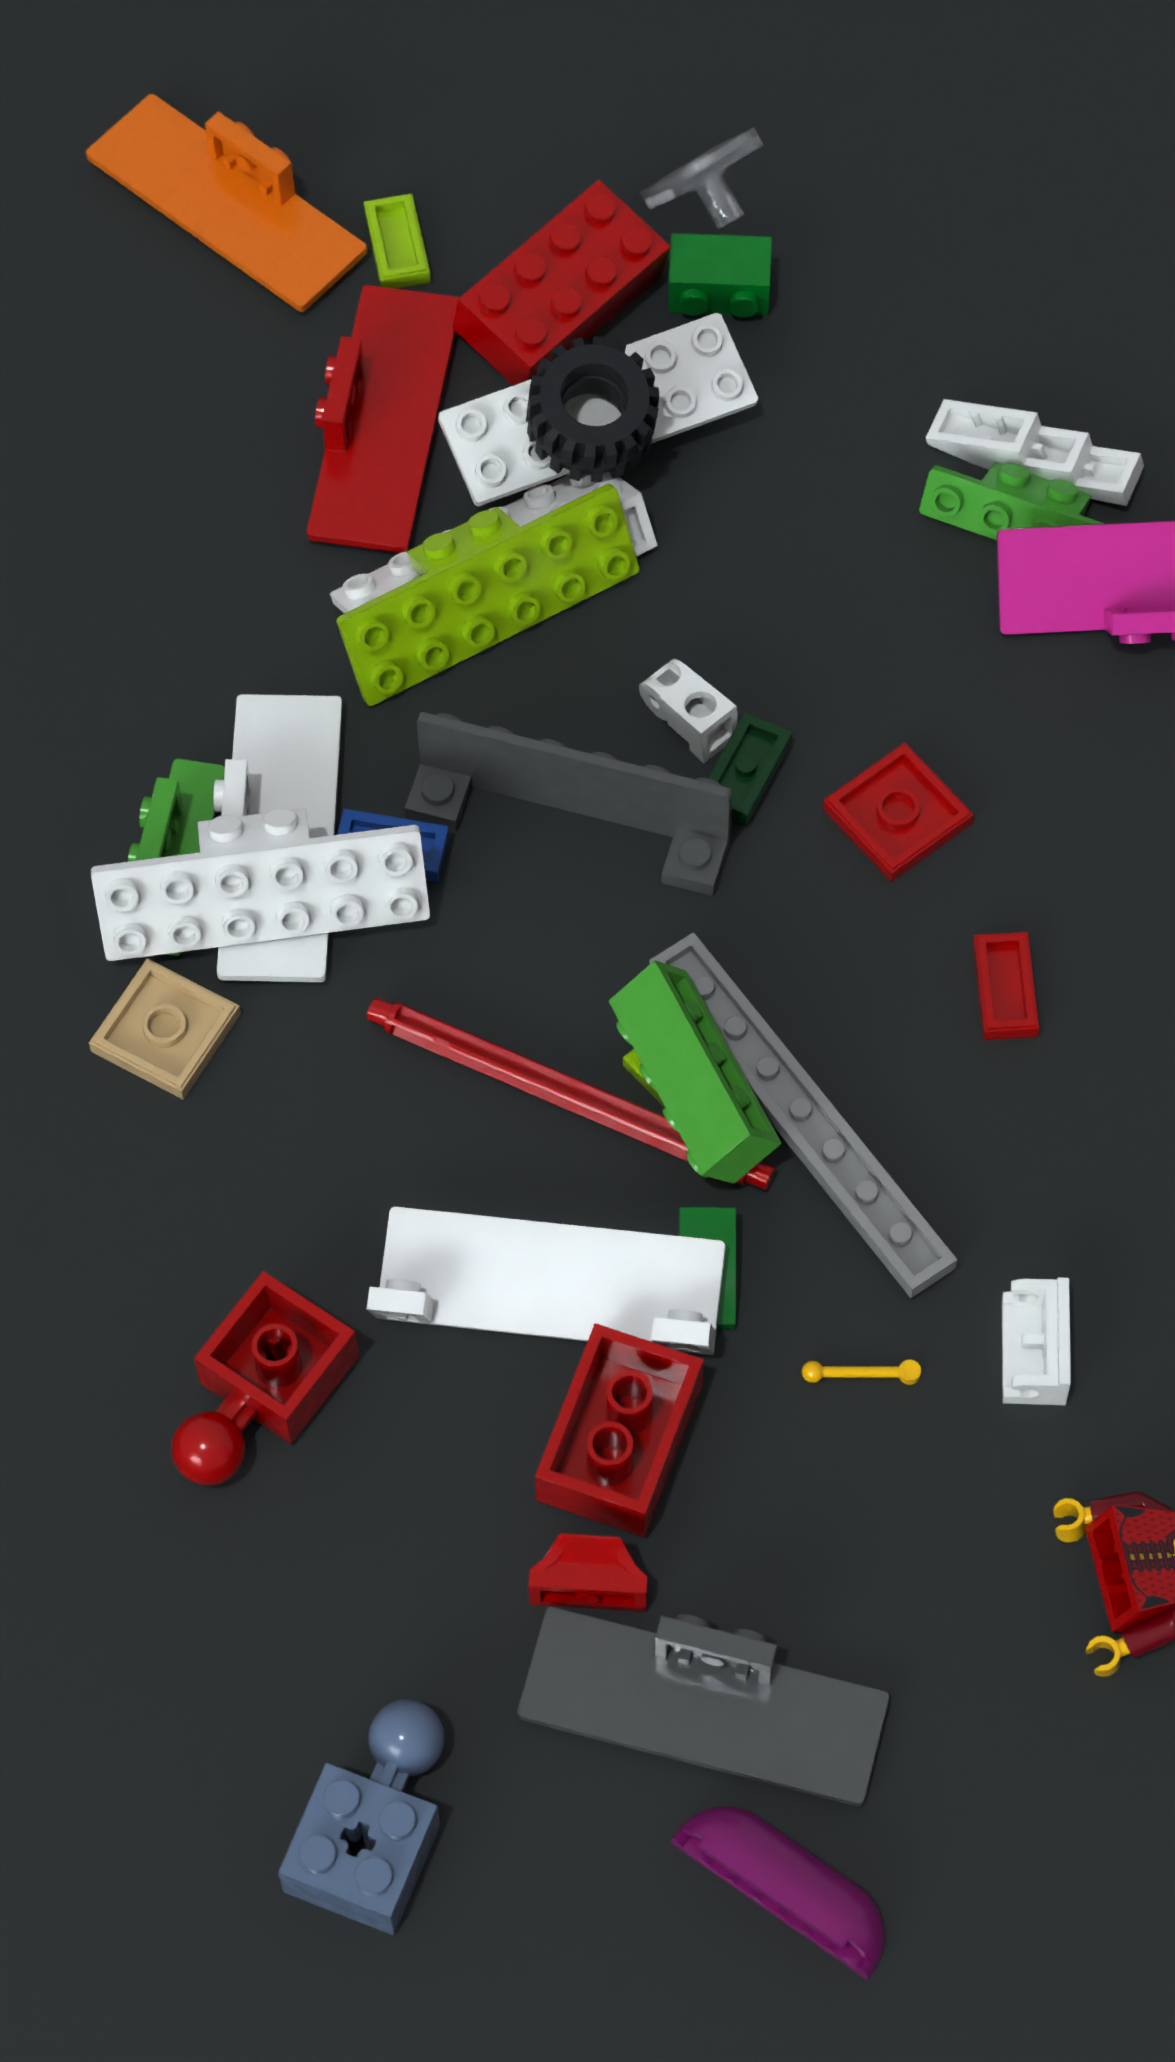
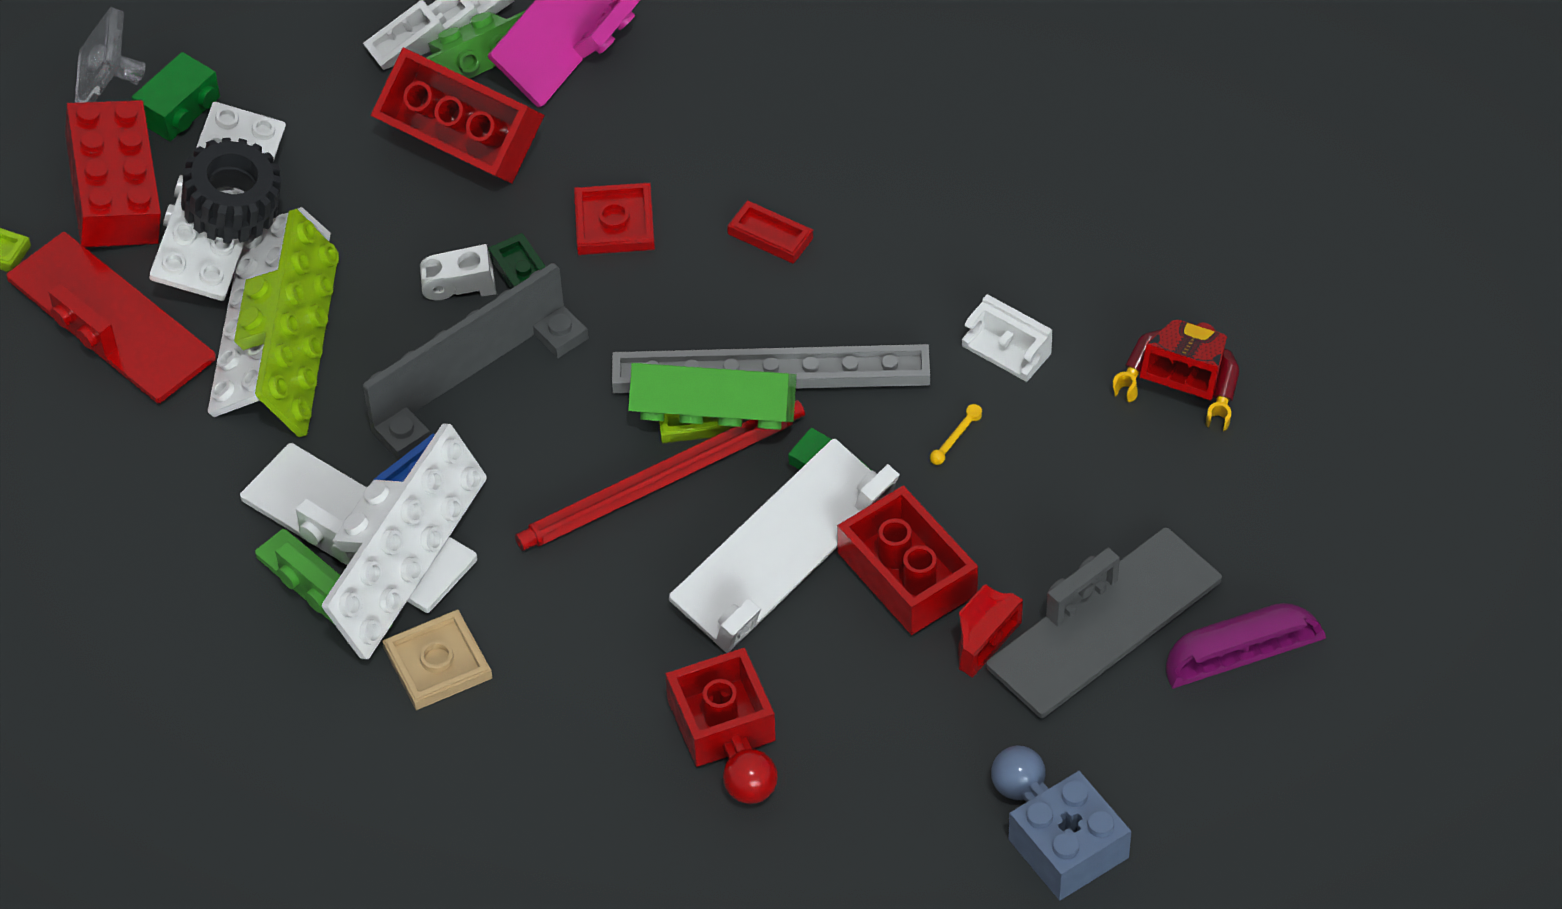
camera: 55 degrees left, 10 degrees down
(893, 558) = (457, 115): none -> red brick

